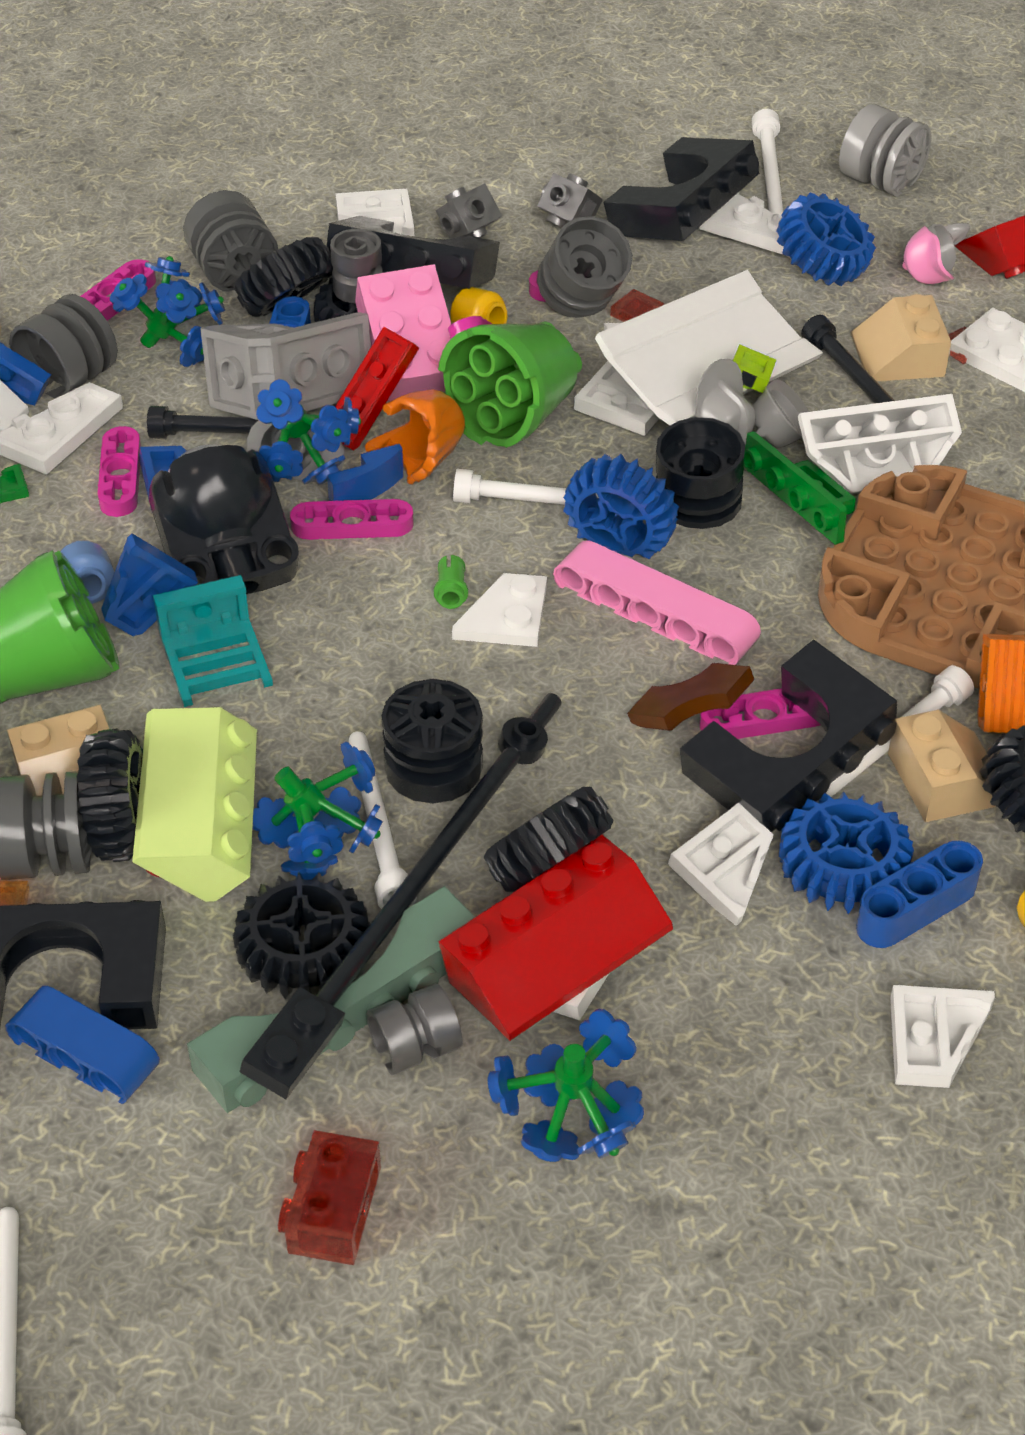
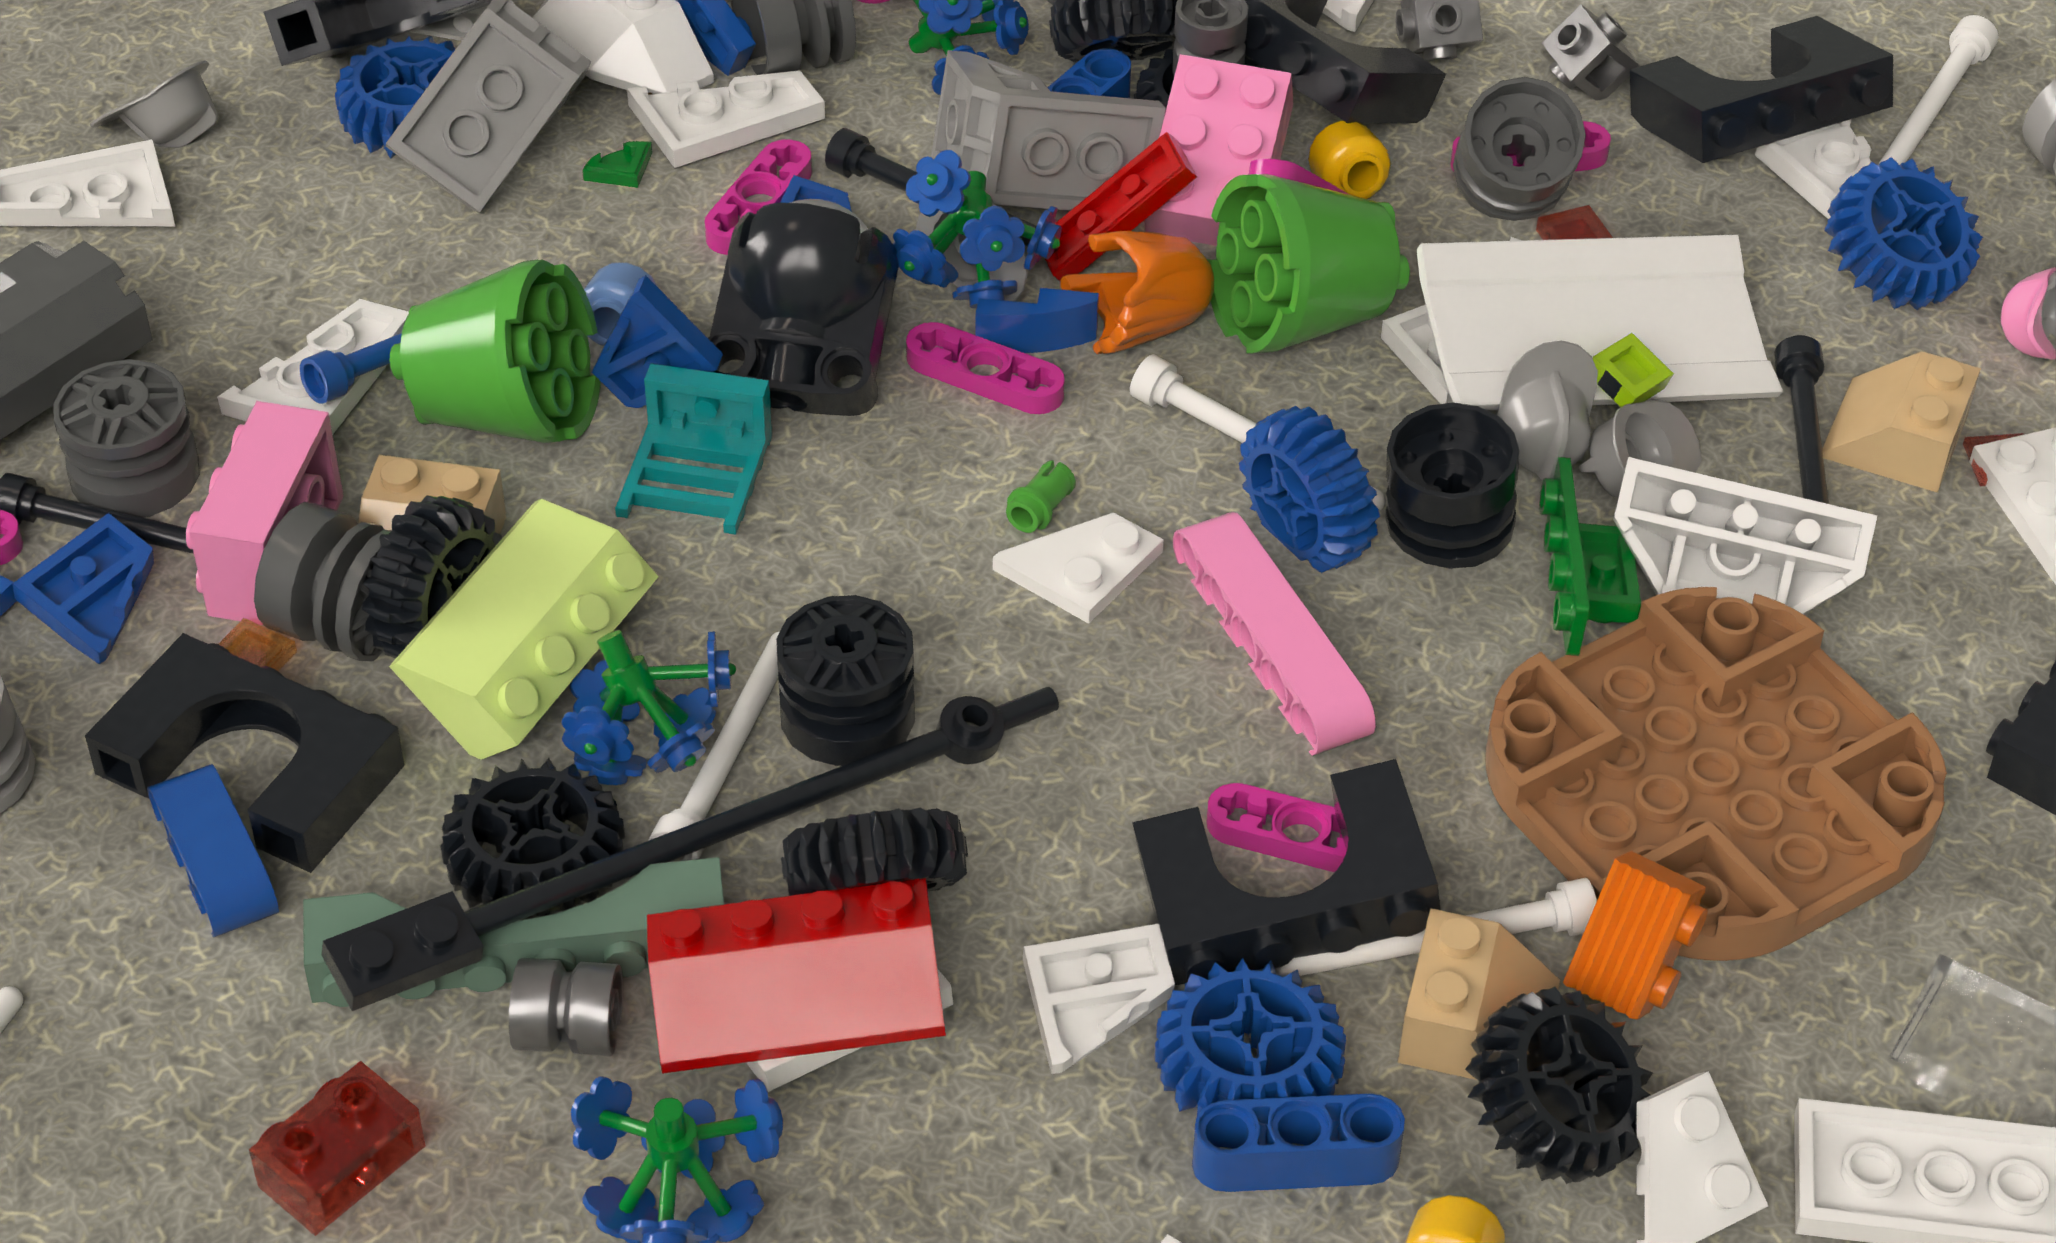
camera: 30 degrees right, 0 degrees up
(711, 689) = (1232, 770): reddish brown tile -> none

